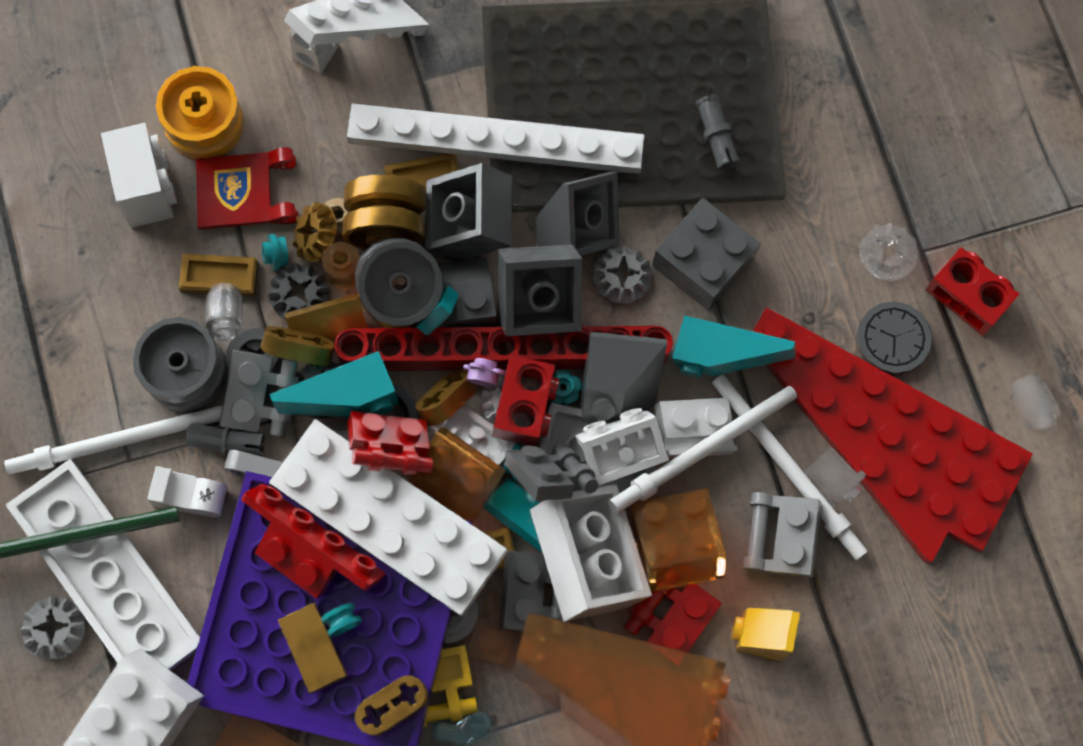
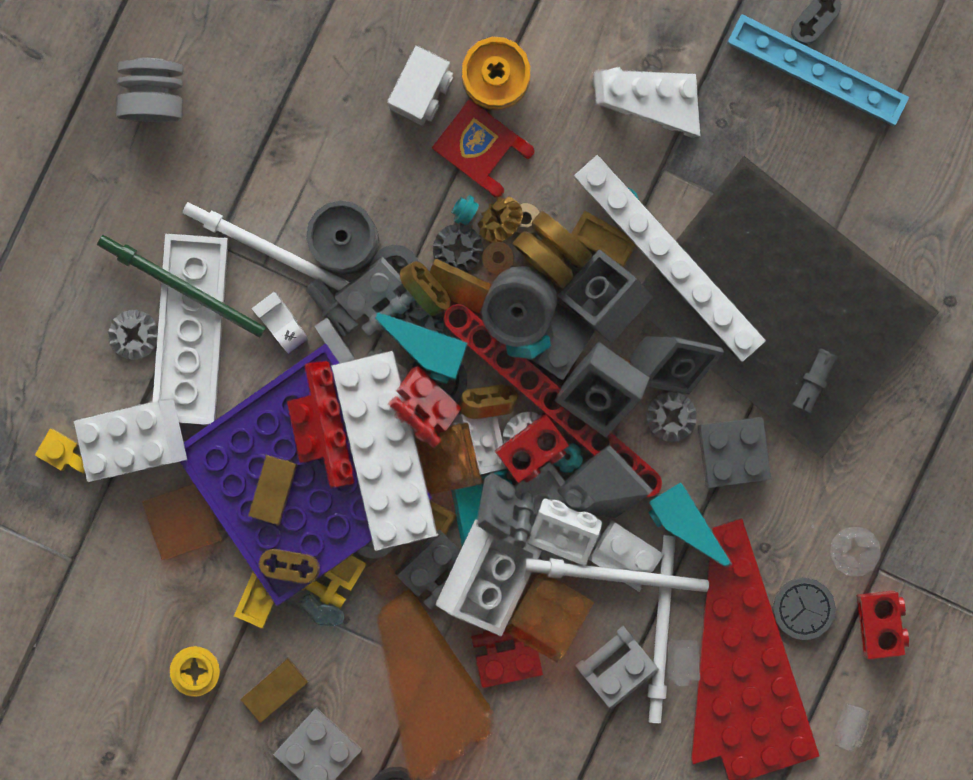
camera: 50 degrees right, 15 degrees up
(202, 272) = (417, 191): pearl gold tile -> none
(224, 312) = (398, 224): clear brick -> none
(341, 620) = (303, 489): teal bush -> none
(483, 372) = (523, 409): lavender plate -> none
(766, 632) = (550, 717): yellow slope -> none

